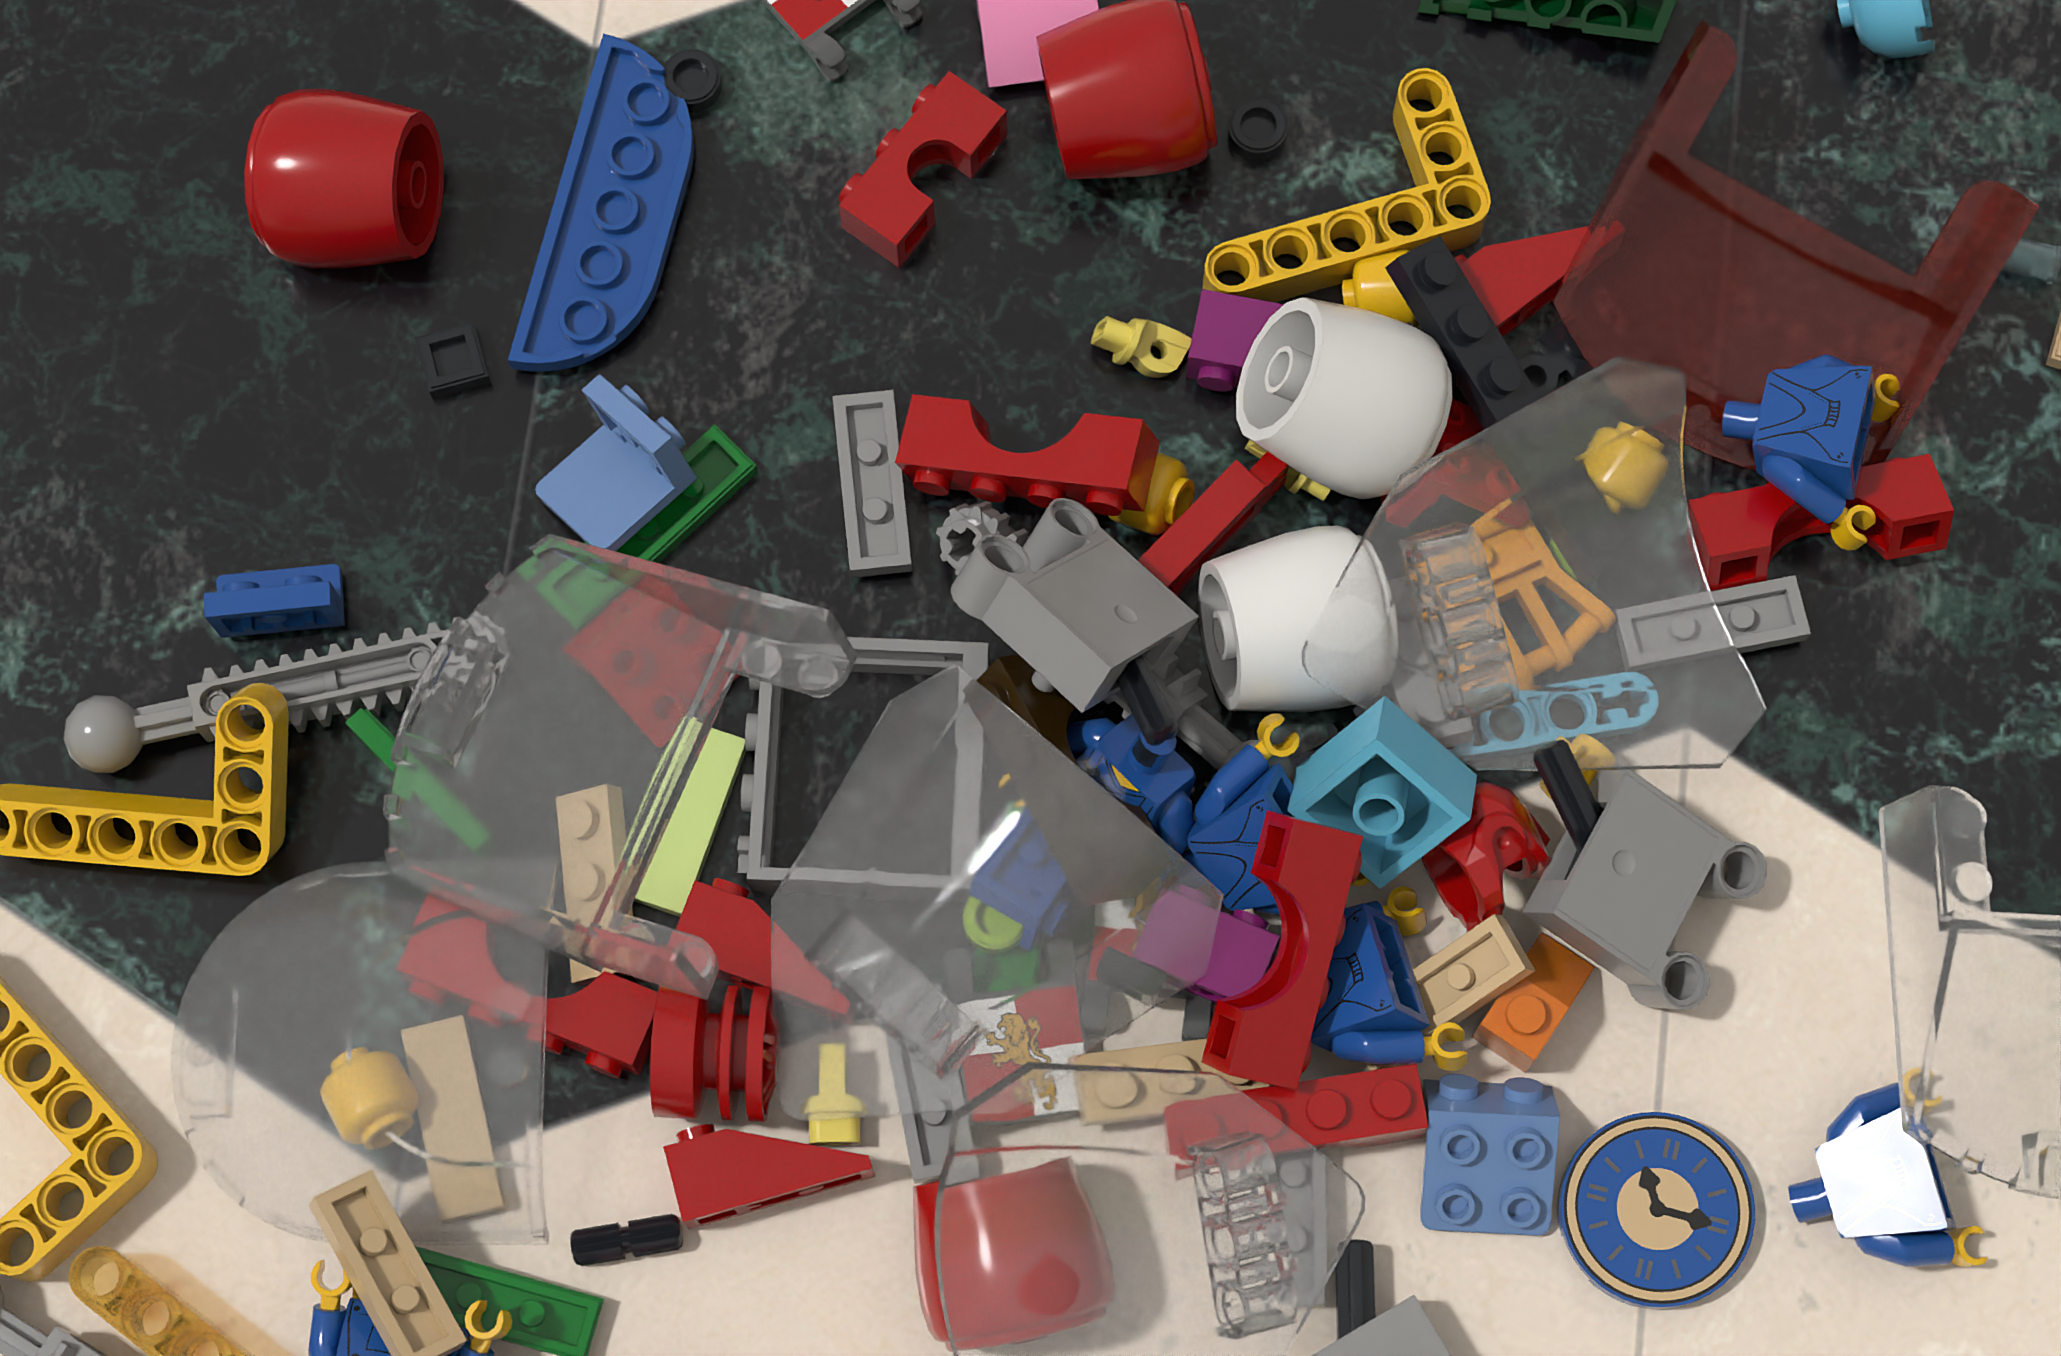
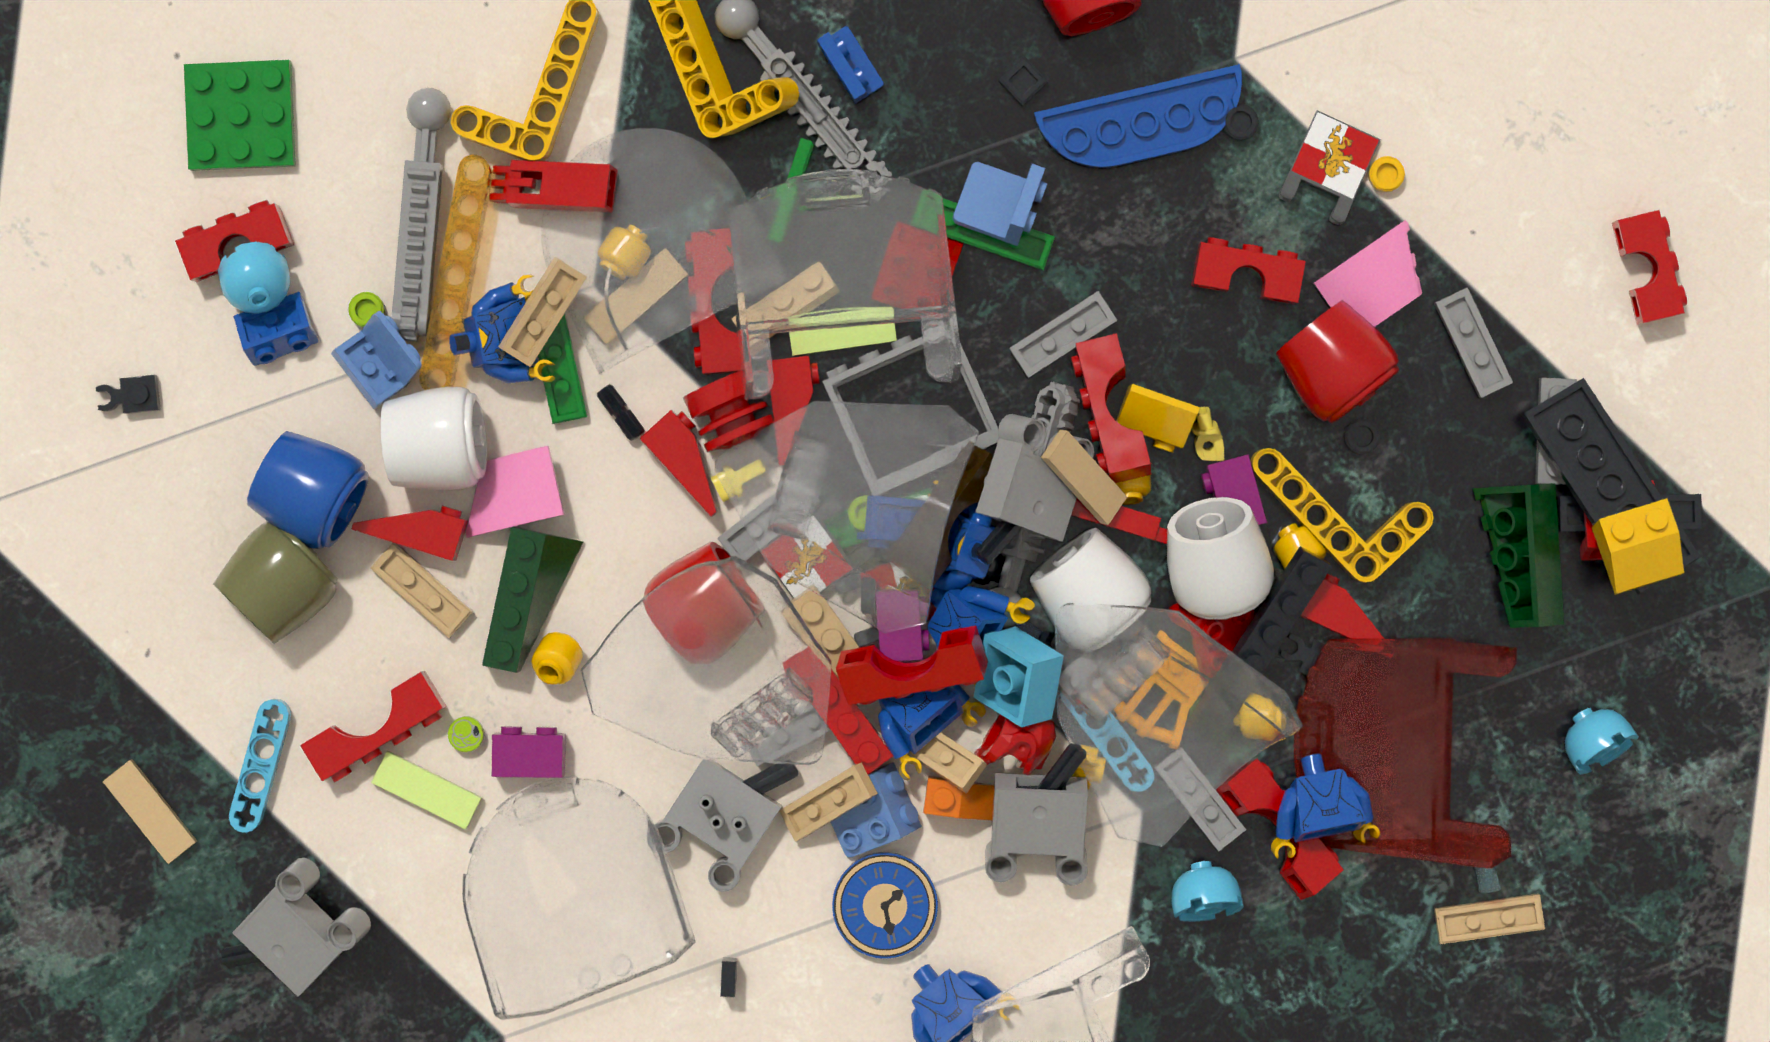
camera: 65 degrees right, 15 degrees up
(209, 1141) = (563, 185): none -> red hinge
(1072, 377) = (1158, 417): none -> yellow slope
(1111, 528) = (1084, 477): none -> tan tile
(1442, 1209) = (828, 802): none -> tan plate
(1870, 682) = (1205, 892): none -> medium azure cylinder

